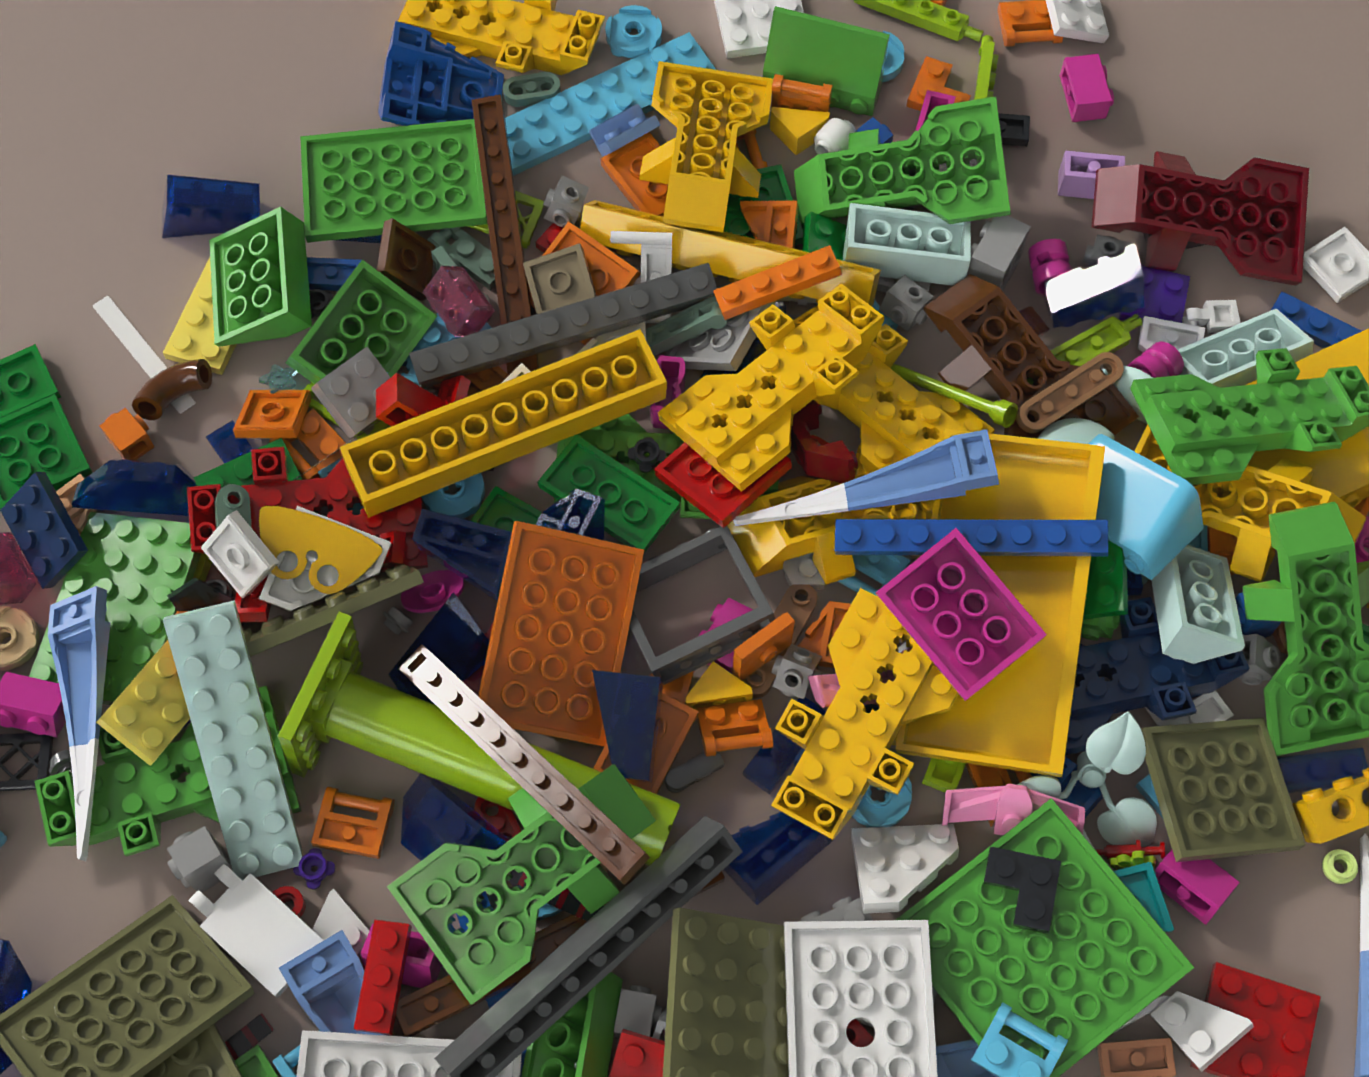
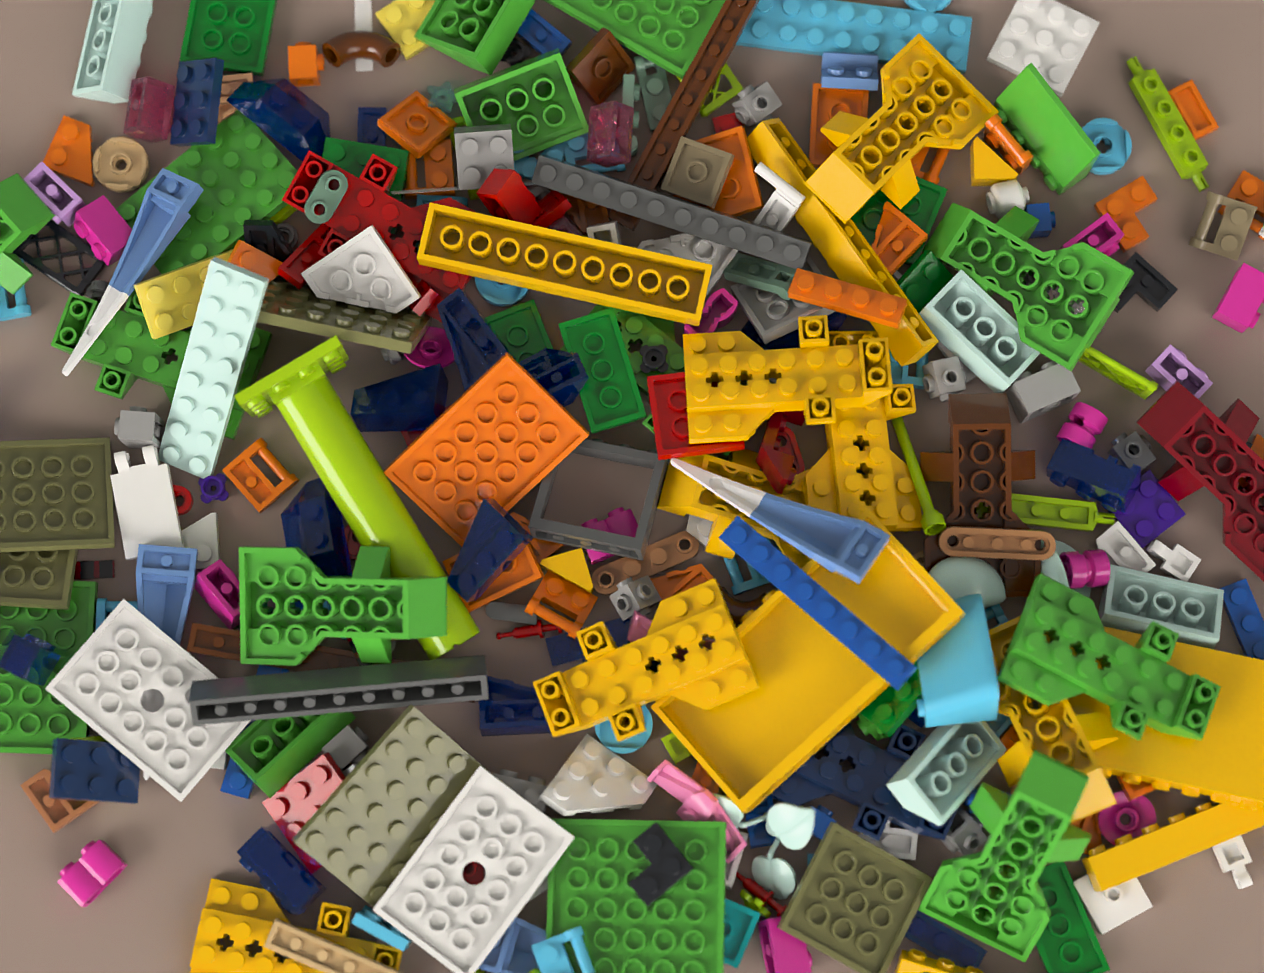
camera: 40 degrees right, 15 degrees up
(239, 554) = (308, 232): white tile -> none
(335, 544) = (361, 247): yellow piece -> none
(383, 977) = (198, 602): red plate -> none
(525, 765) = (381, 532): plate -> none
(724, 774) = (530, 630): none -> red piece
(763, 646) = (618, 566): orange plate -> none
(961, 614) = (756, 654): dark pink slope -> none
(986, 69) = (1166, 234): lime plate -> none
(1029, 46) = (1231, 229): none -> dark tan plate
(1054, 212) = (1118, 373): none -> lime window

